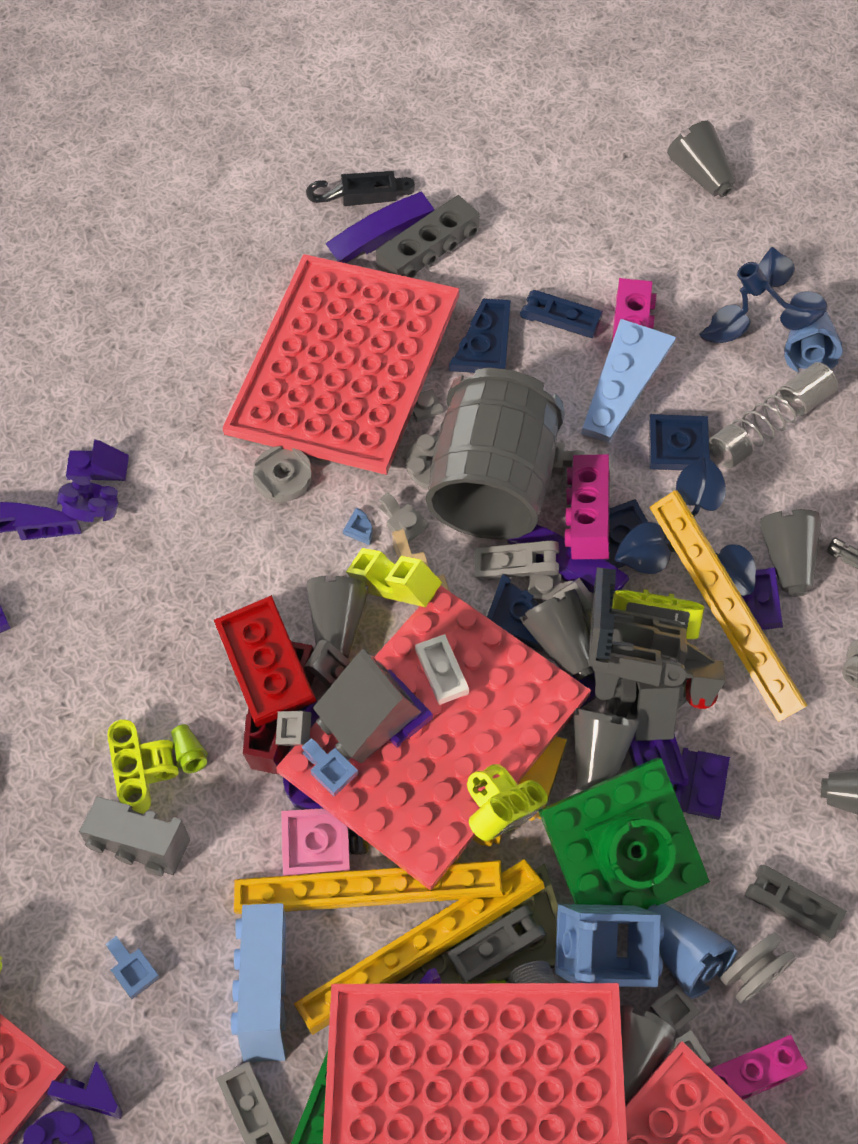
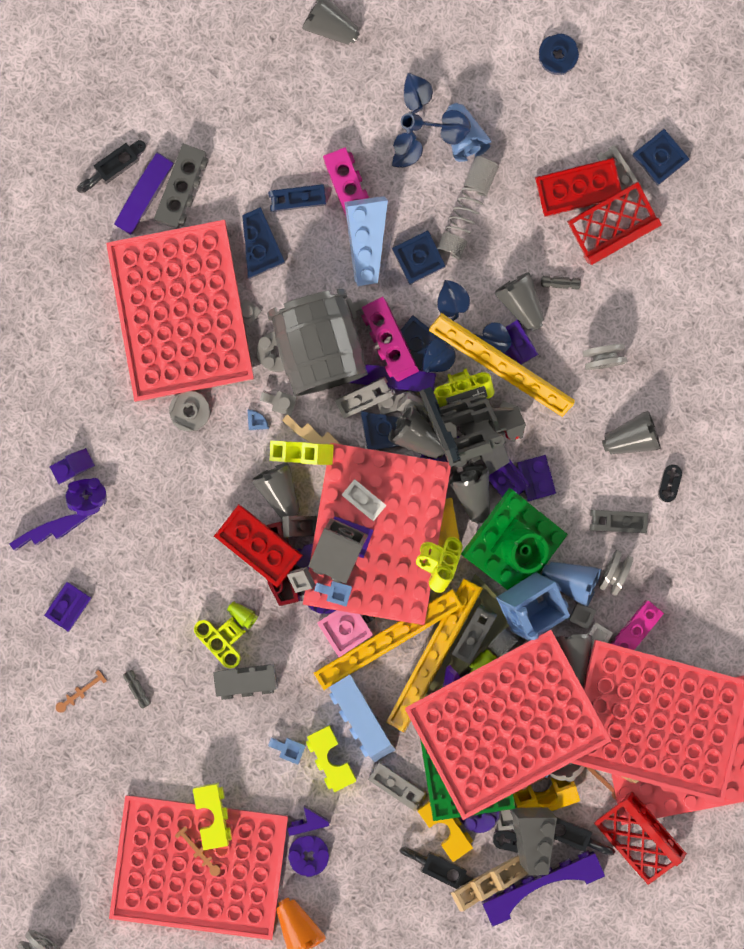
camera: 25 degrees left, 25 degrees up
(181, 984) = (336, 775): none -> neon yellow arch

